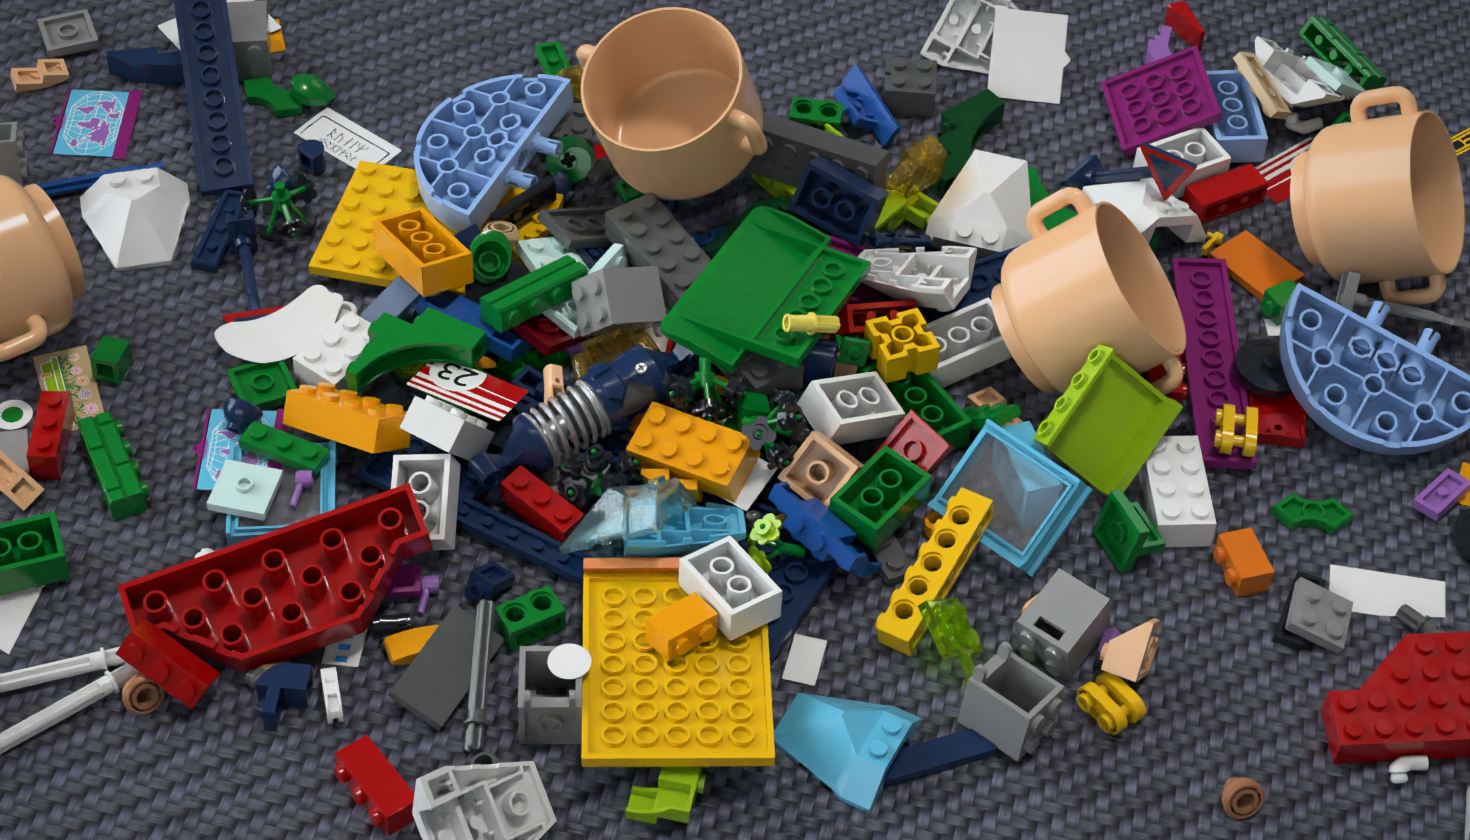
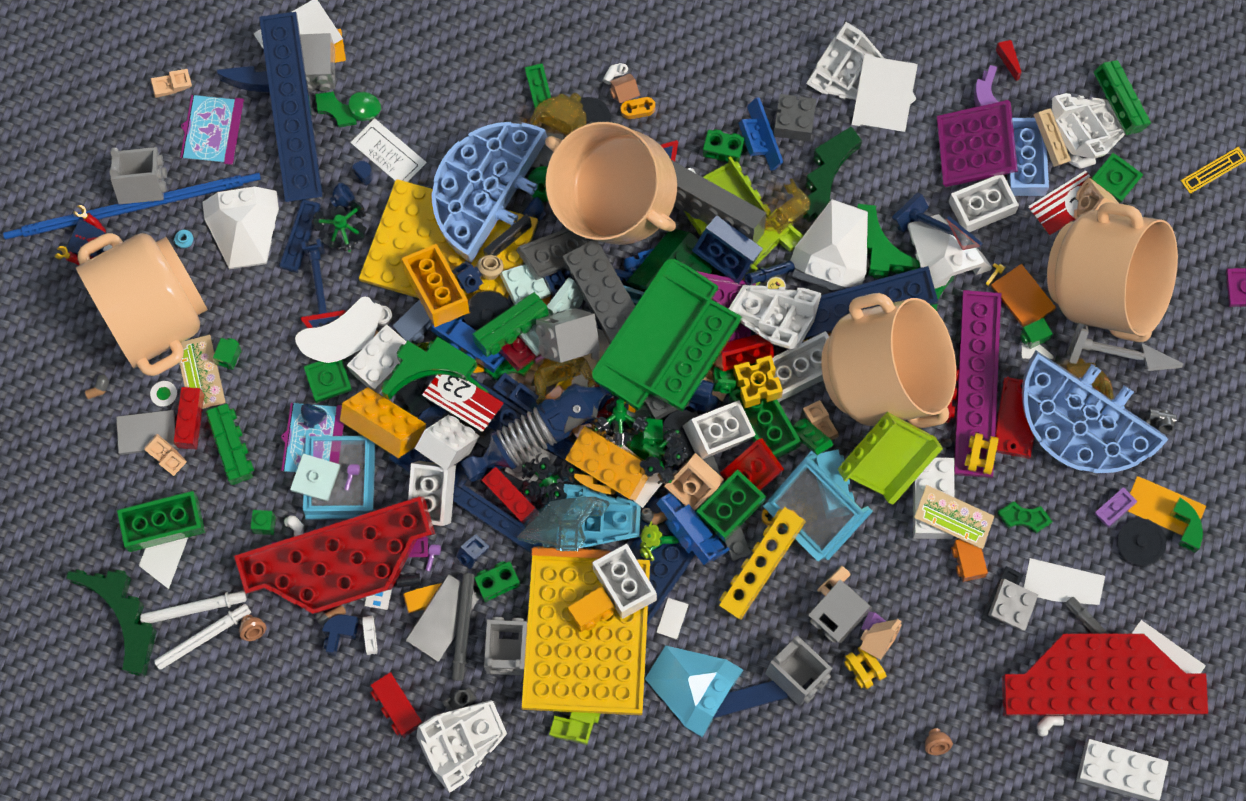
camera: 10 degrees right, 25 degrees up
(68, 33) = (190, 43): light grey plate -> none
(161, 552) = (263, 522): none -> green brick
(167, 663) = (267, 614): red brick -> none
(284, 448) = (341, 443): green plate -> none
(490, 256) = (481, 295): green hat -> none
(553, 381) = (520, 399): light nougat bar -> none
(569, 661) = (518, 633): white sticker -> none
(810, 323) = (693, 380): light yellow axle -> none
(952, 631) = (769, 621): clear neon green plate -> none
(1126, 531) = (895, 533): green bracket -> none
(1212, 501) = (954, 516): none -> sticker
(1226, 193) = (1011, 229): red brick -> none
(1260, 368) = (1007, 397): black wheel -> none
(1334, 77) = (1111, 127): light aqua plate -> none

